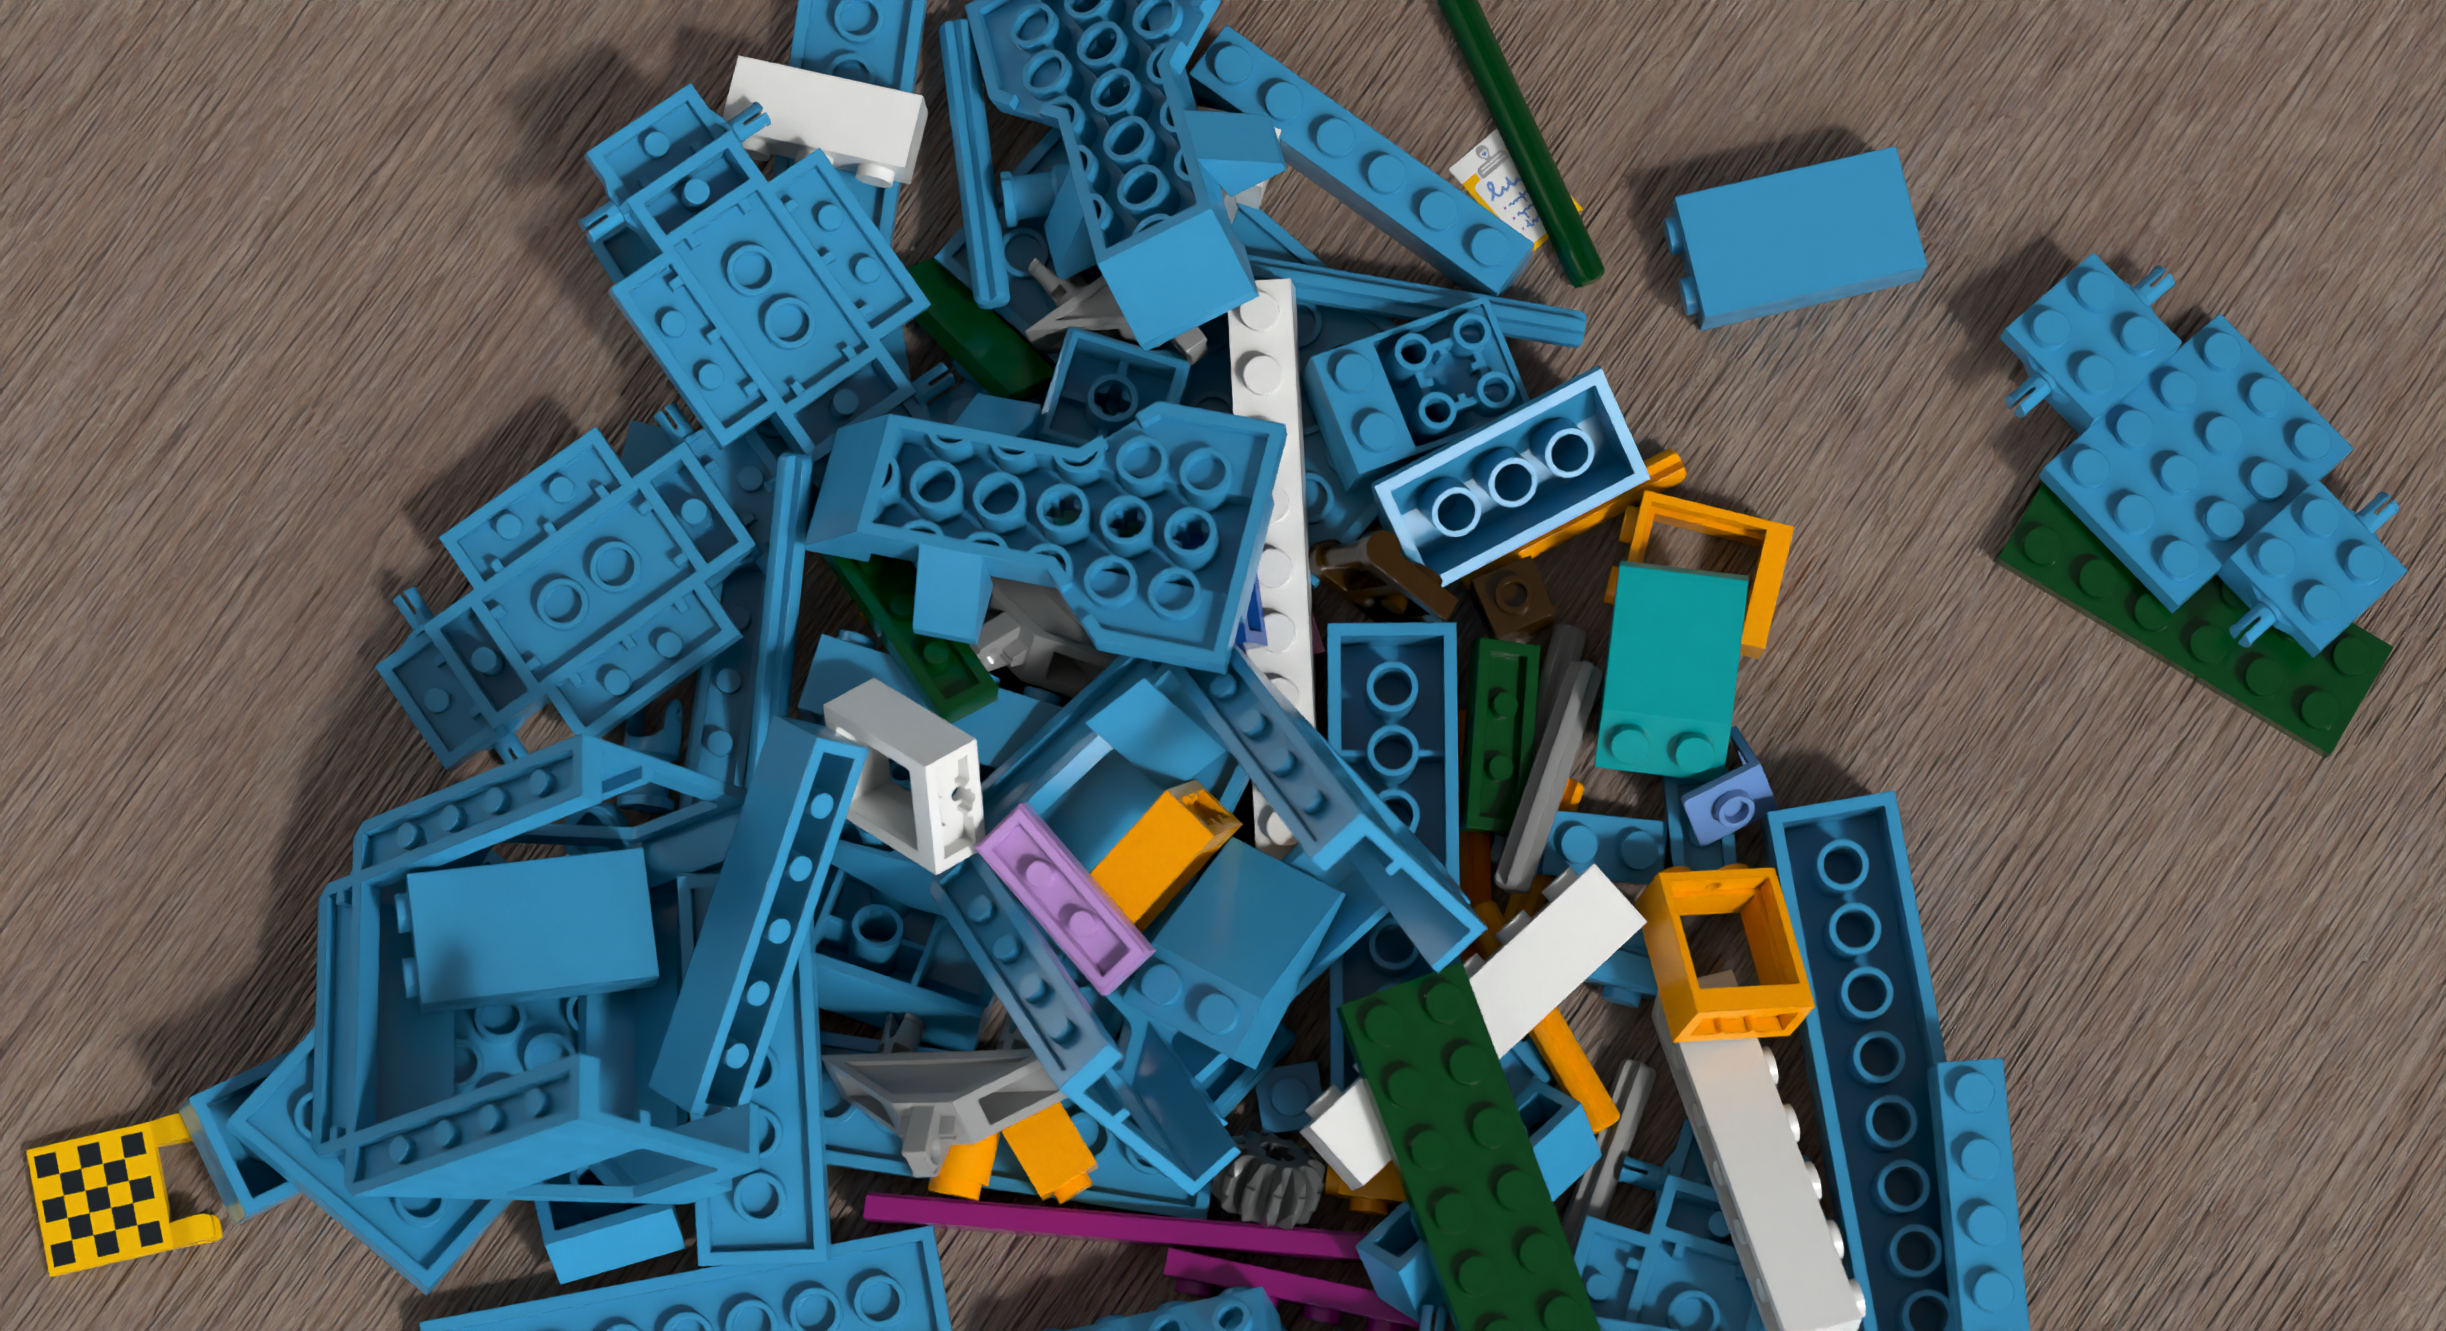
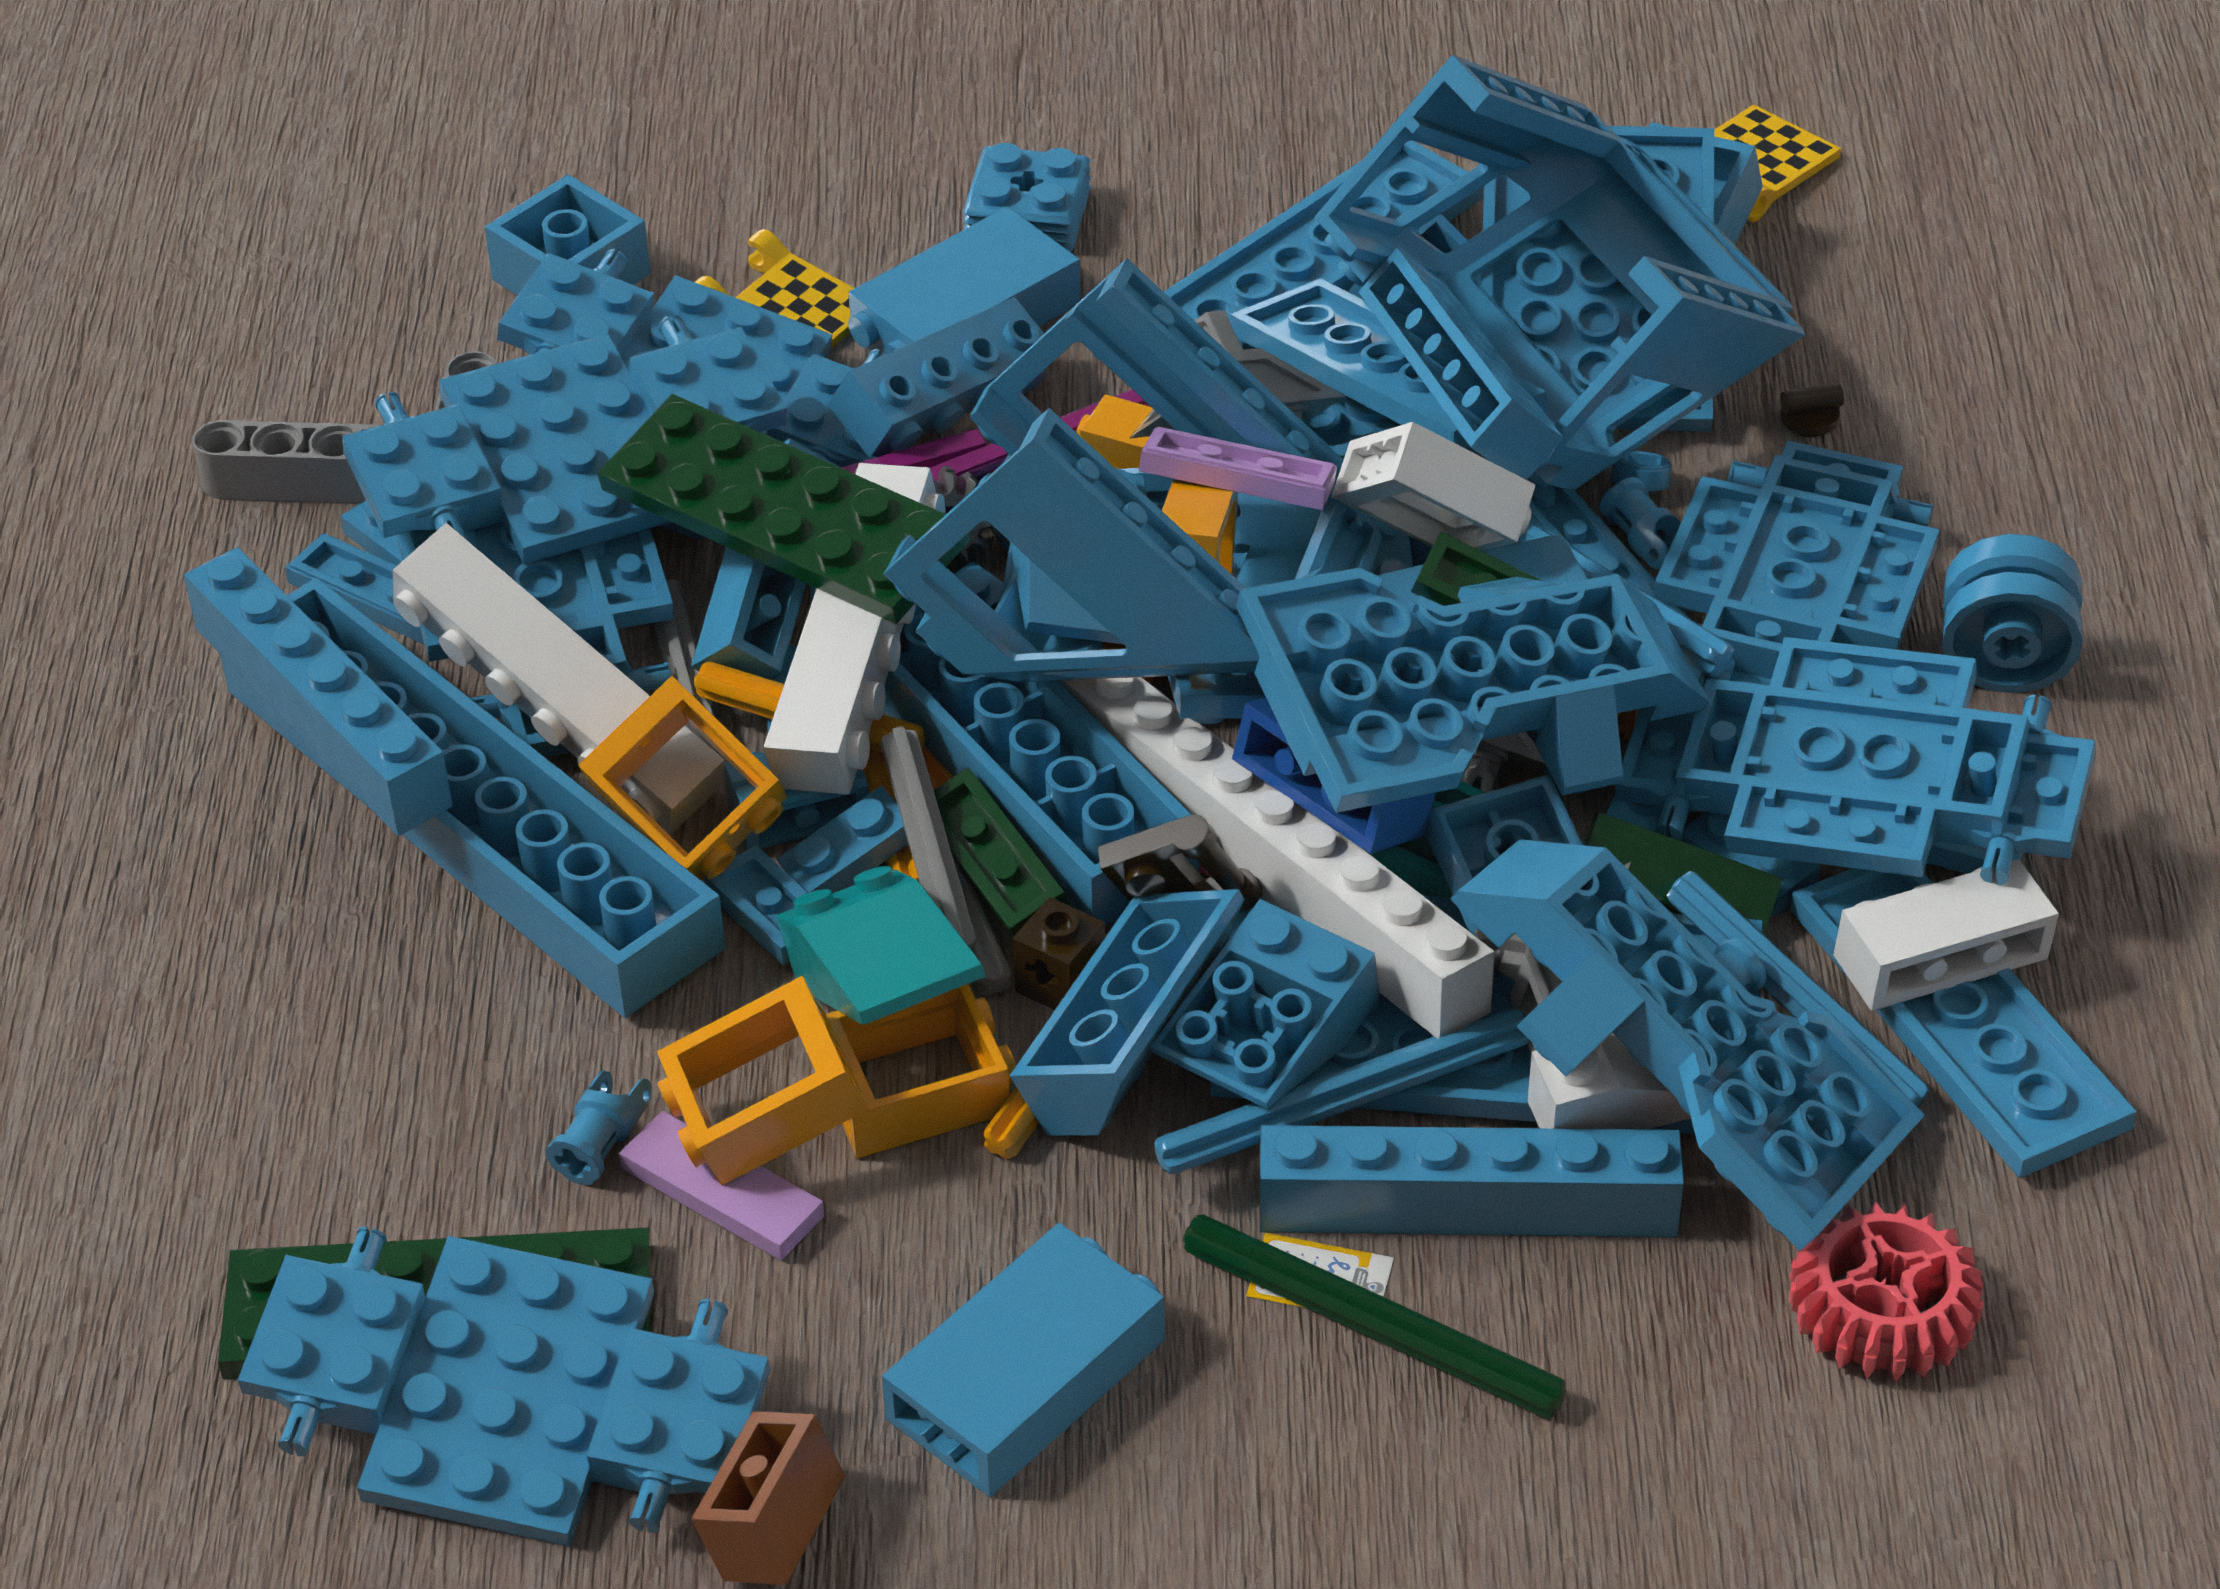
camera: 145 degrees right, 35 degrees down
(375, 797) = (1812, 410): none -> dark brown plate
(470, 398) = (2015, 611): none -> dark azure wheel
(528, 931) = (1573, 334): dark azure brick -> none
(1731, 799) = (747, 927): medium blue bracket -> none
(1791, 583) = (779, 1120): none -> light orange window
(1913, 573) = (753, 1206): none -> lavender tile
(1984, 683) = (598, 1125): none -> dark azure piece
(2069, 224) = (768, 1498): none -> dark orange brick

